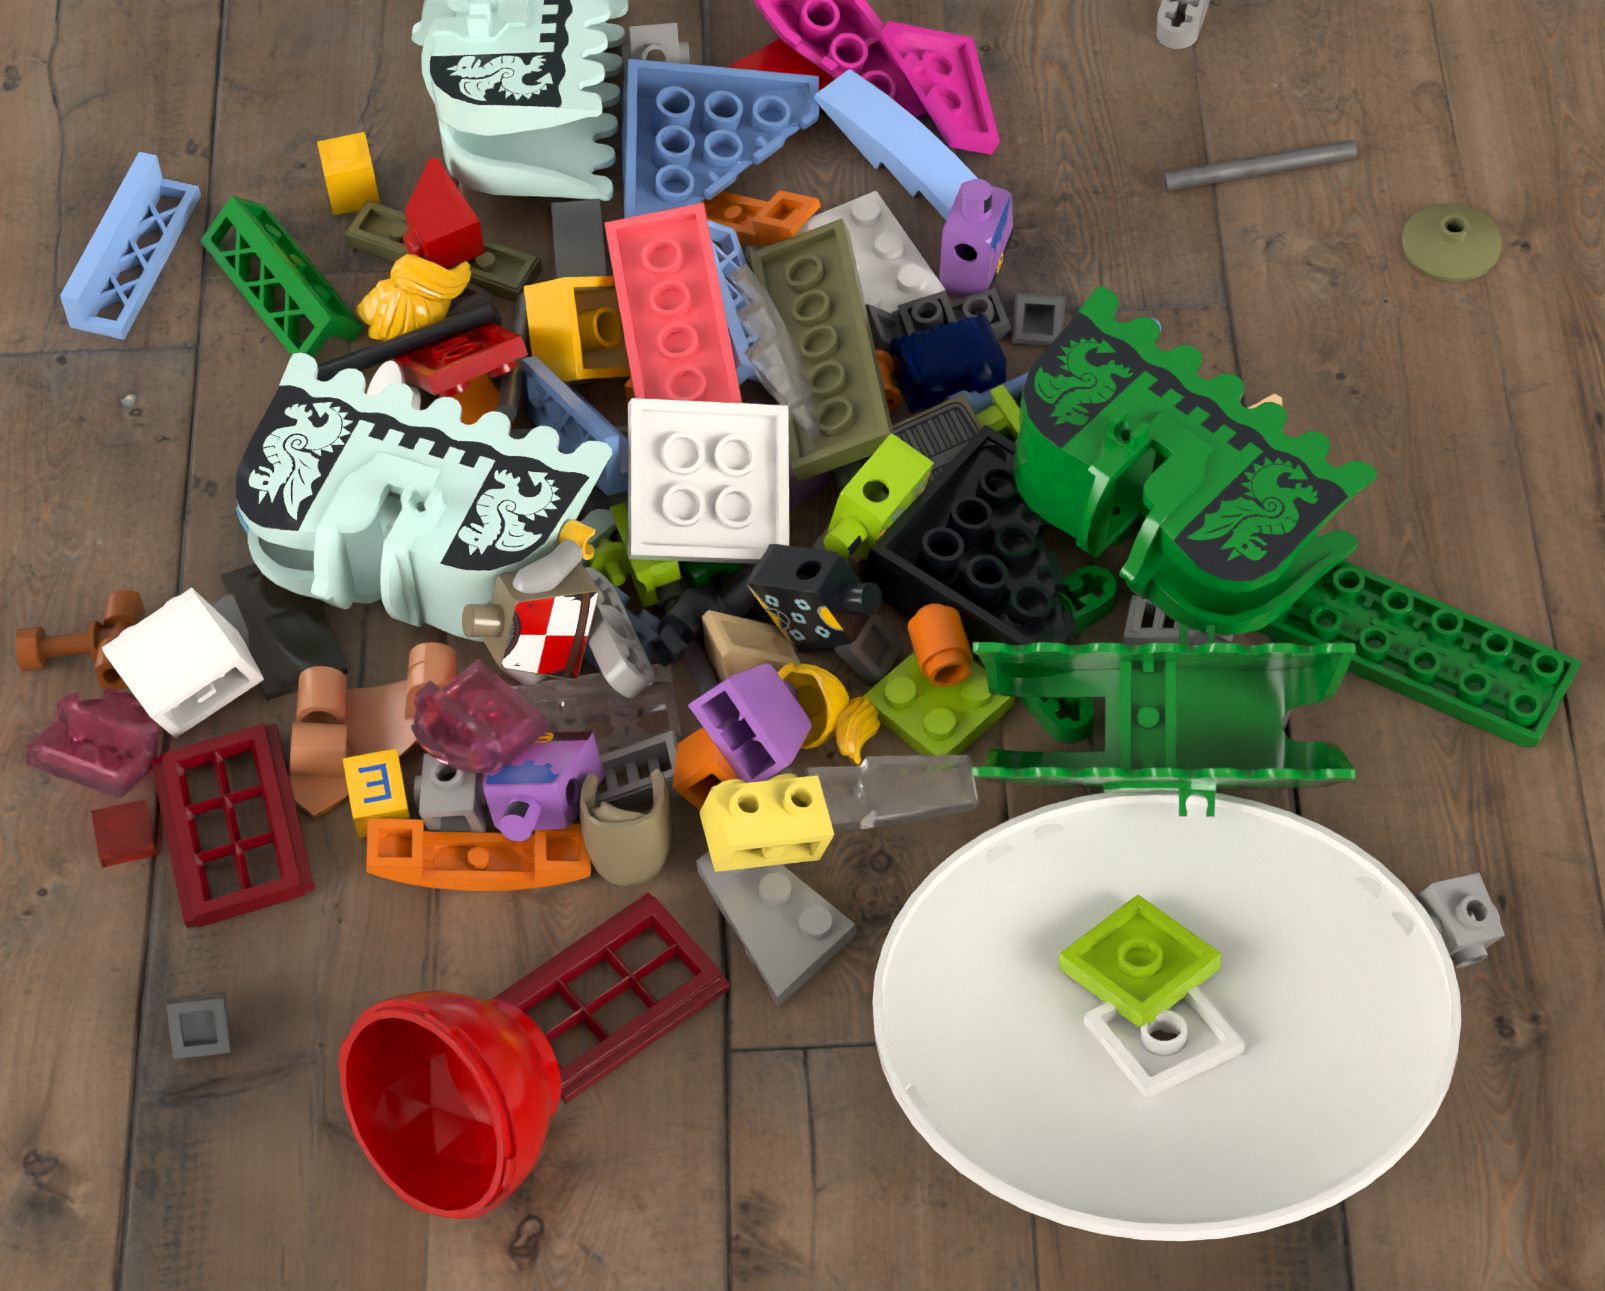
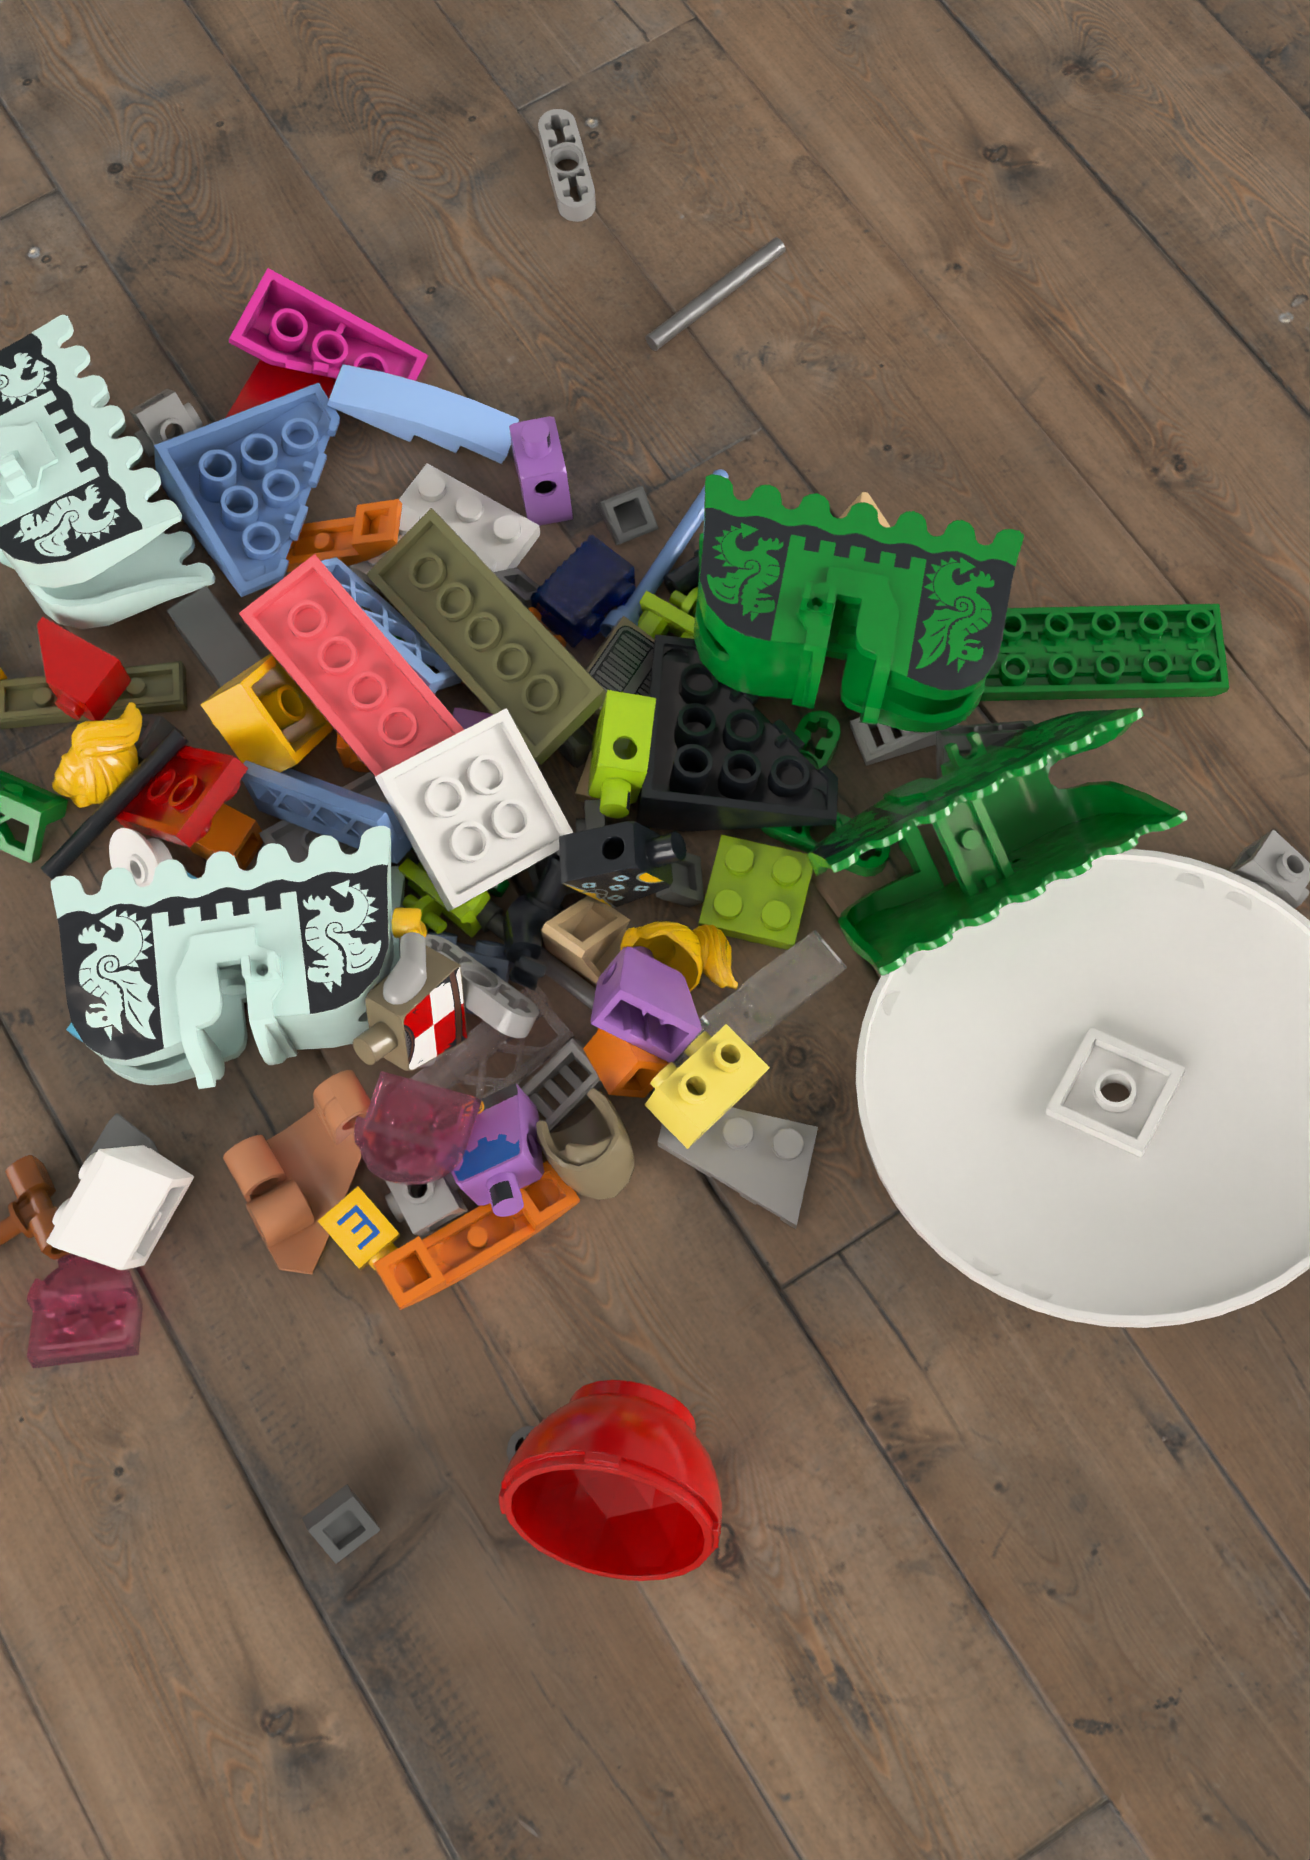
camera: 30 degrees left, 15 degrees up
(123, 833) = (157, 1380): clear red tile -> none
(183, 837) = (213, 1356): dark red piece -> none
(283, 629) = (184, 1122): clear smoke piece -> none
(512, 380) = (212, 741): flat silver bar -> none
(647, 1026) = (616, 1276): dark red piece -> none
(775, 353) = (460, 663): clear slope -> none
(938, 310) = (550, 549): dark grey slope -> none
(940, 645) = (744, 850): orange brick -> none
(948, 83) = (427, 337): dark pink wing -> none
(1139, 961) = (1058, 1038): lime plate -> none
(1451, 242) = (899, 303): olive dish -> none

